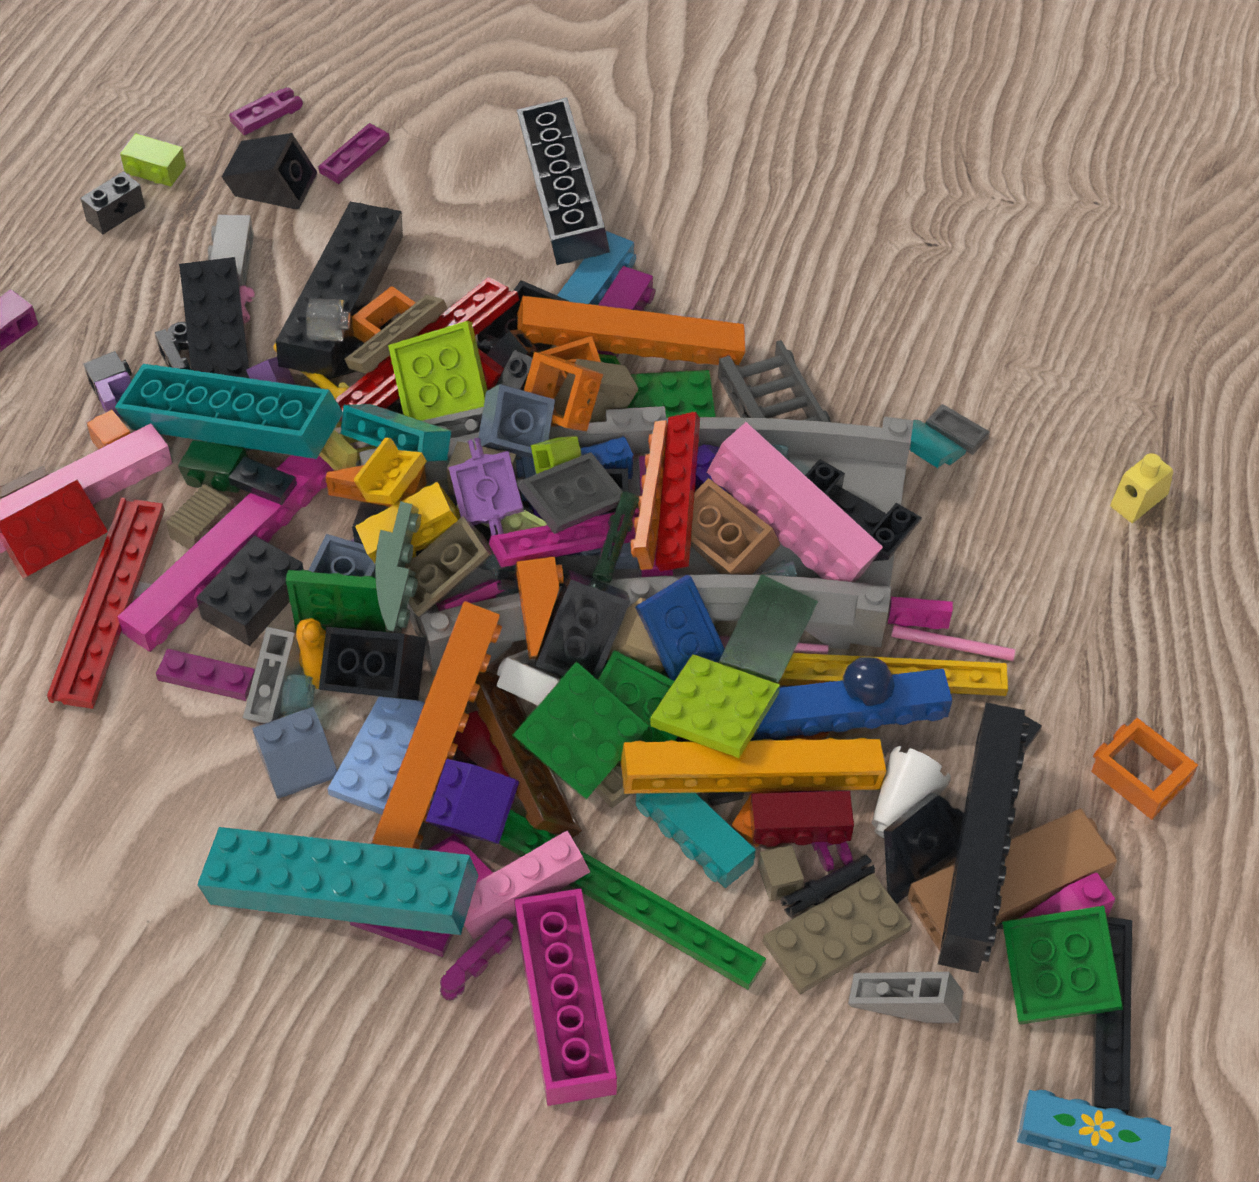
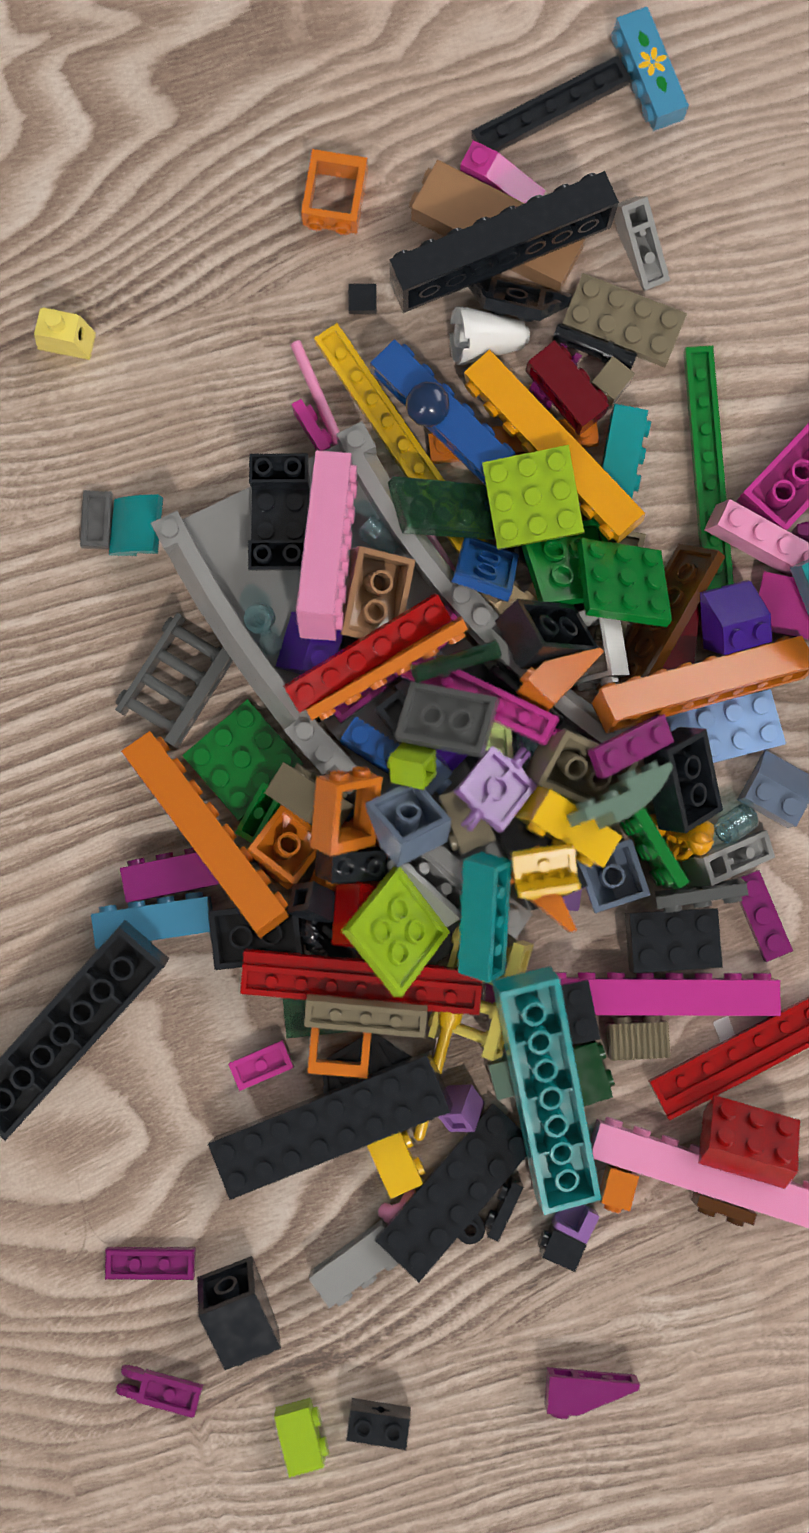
camera: 125 degrees left, 30 degrees up
(267, 313) = (396, 1164): none -> yellow brick
(269, 610) = (701, 896): none -> dark grey plate
(326, 319) = (406, 1078): clear brick -> none
(426, 279) = (261, 1065): none -> dark pink plate
(433, 608) = (630, 746): none -> magenta plate
(1062, 965) = (547, 146): green plate -> none

